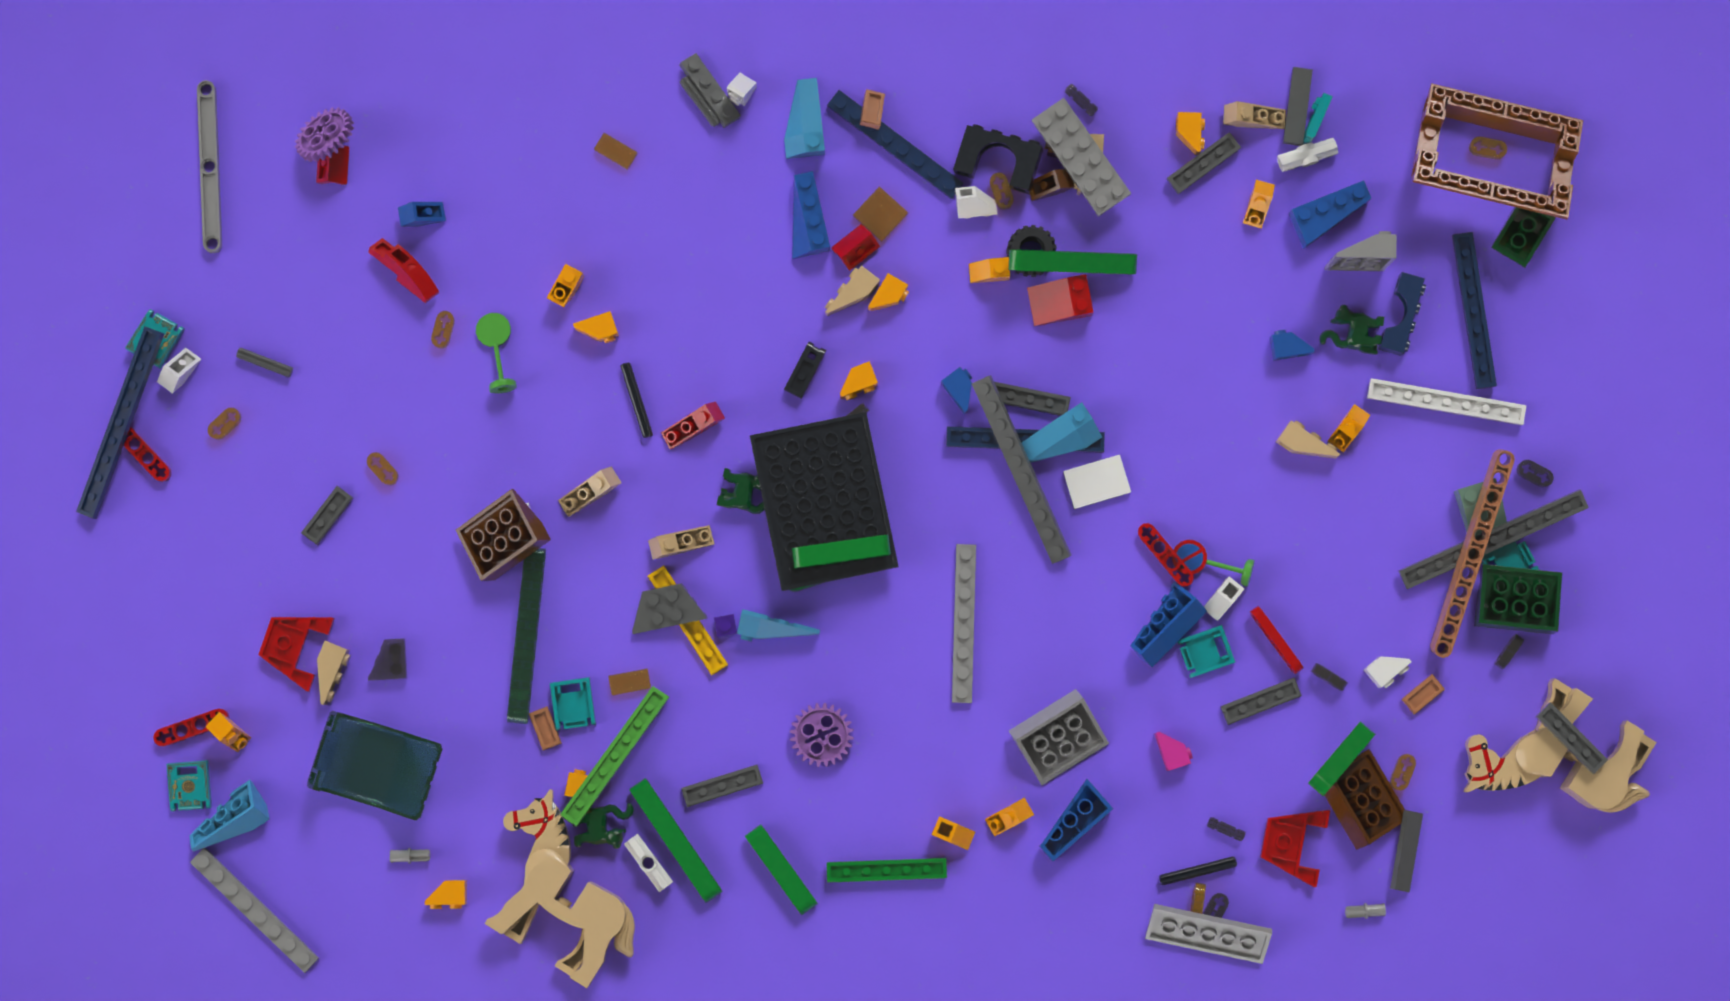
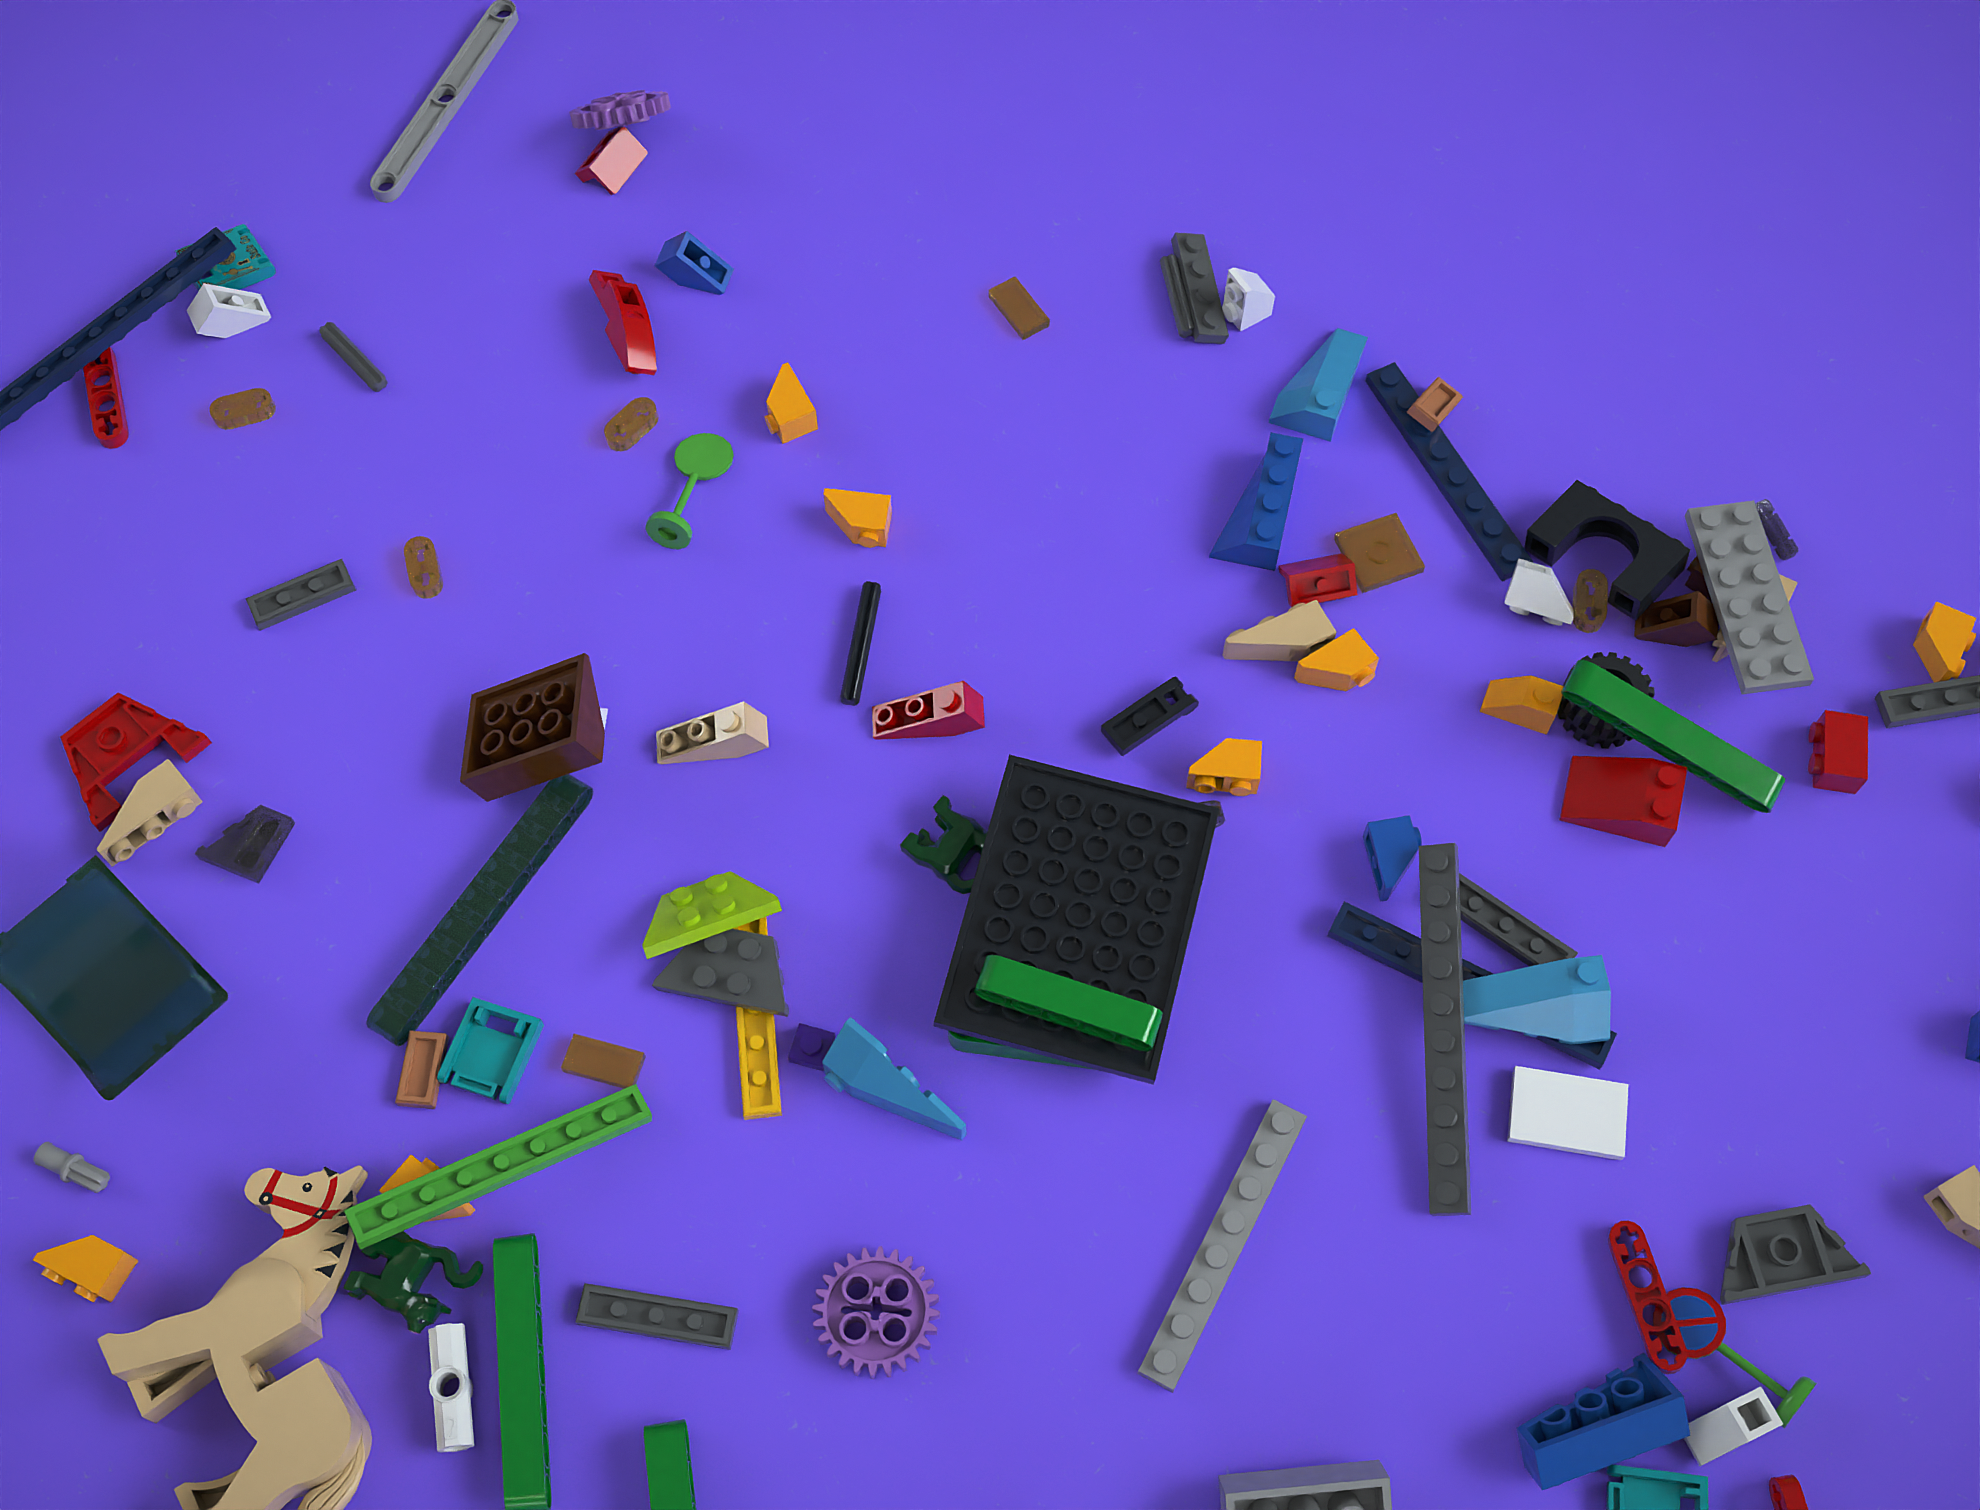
camera: 30 degrees right, 20 degrees down
(524, 279) = (789, 407): none -> light orange slope
(565, 285) = (846, 437): light orange slope -> none
(639, 585) = (706, 910): none -> lime wing
(680, 542) = (810, 878): tan slope -> none
(1158, 222) = (1839, 752): none -> red brick
(1220, 503) = (1784, 1254): none -> dark grey wing

